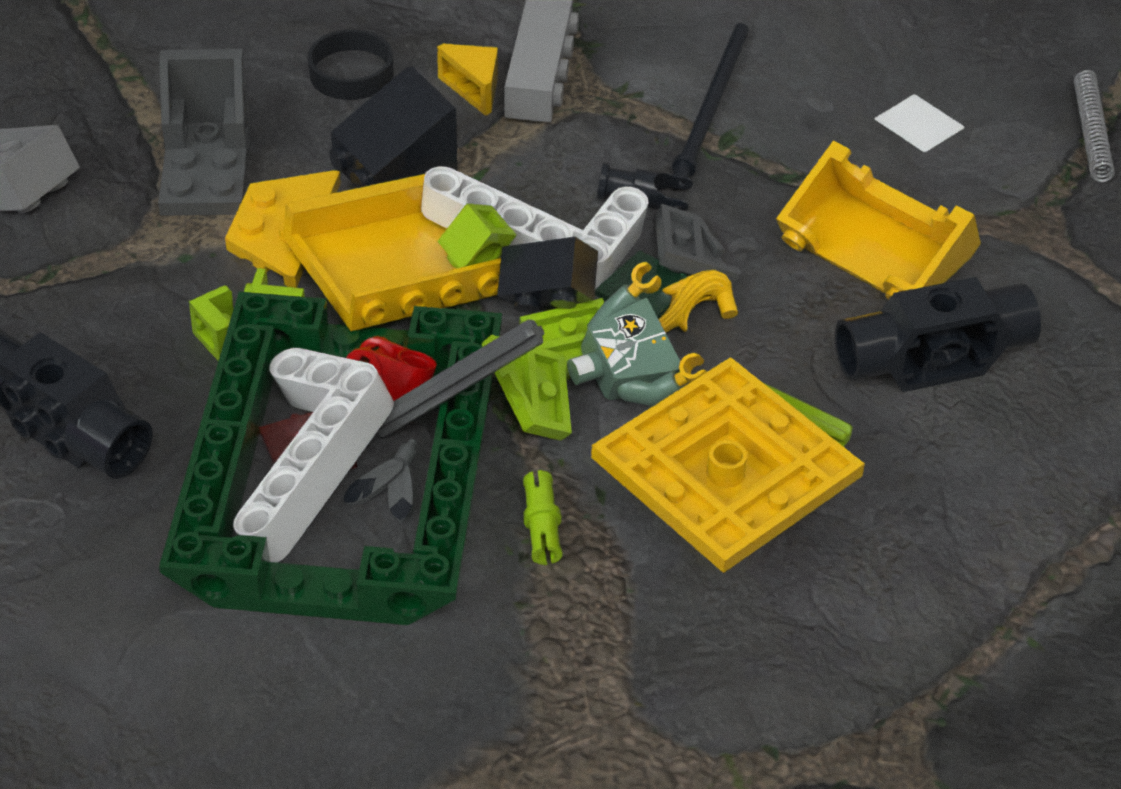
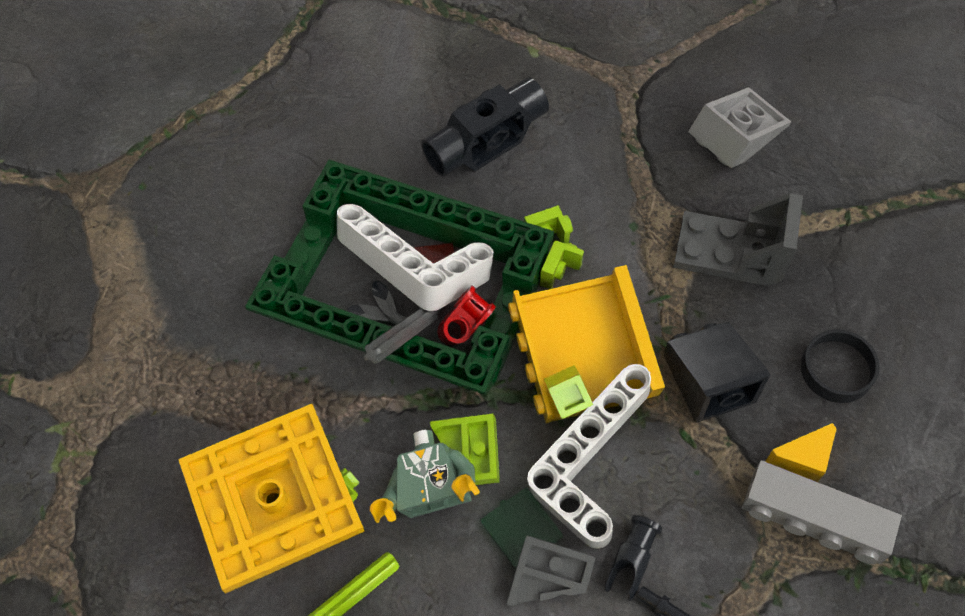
camera: 110 degrees right, 15 degrees up
(259, 222) = (662, 288): yellow wing -> none
(537, 392) = (417, 403): lime wing -> none
(542, 517) = (310, 387): lime pin -> none
(548, 274) = (520, 437): black brick -> none
(690, 291) = (494, 552): yellow piece -> none

